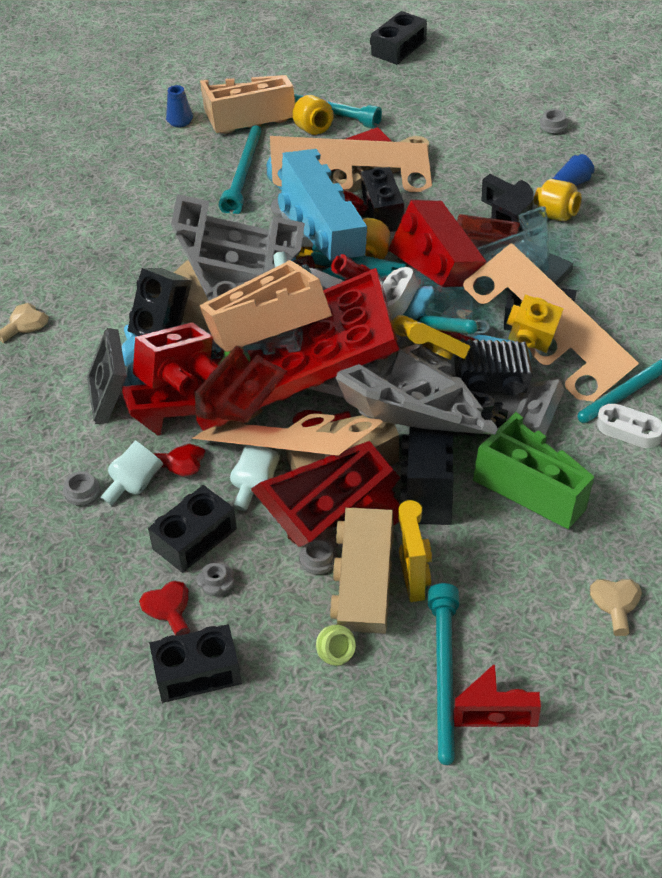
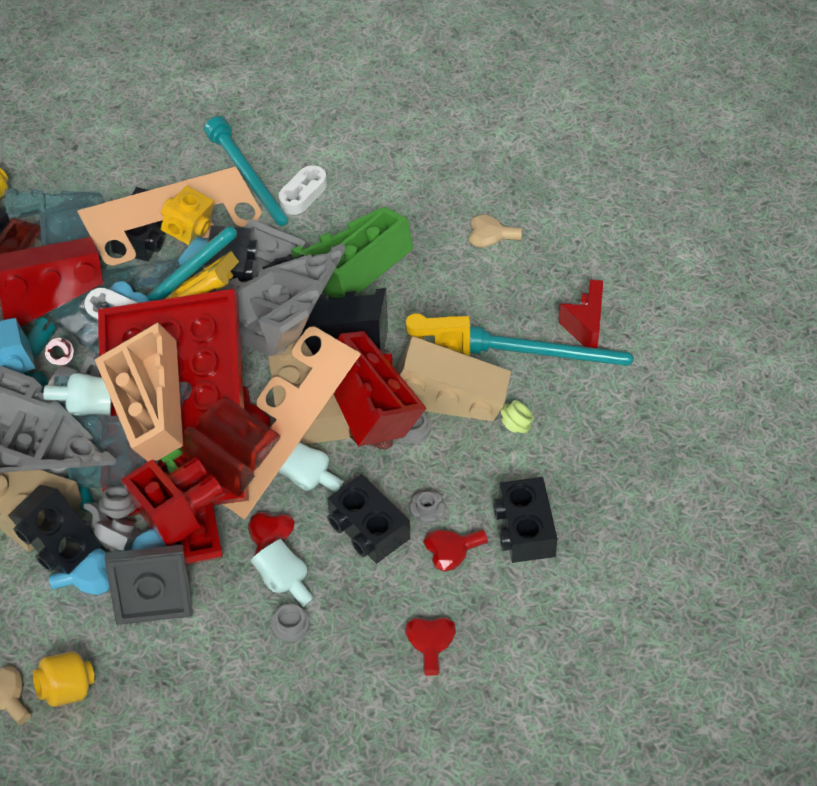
camera: 85 degrees left, 5 degrees up
(27, 347) = (63, 678): none -> yellow head
(60, 600) = (430, 639): none -> red rock

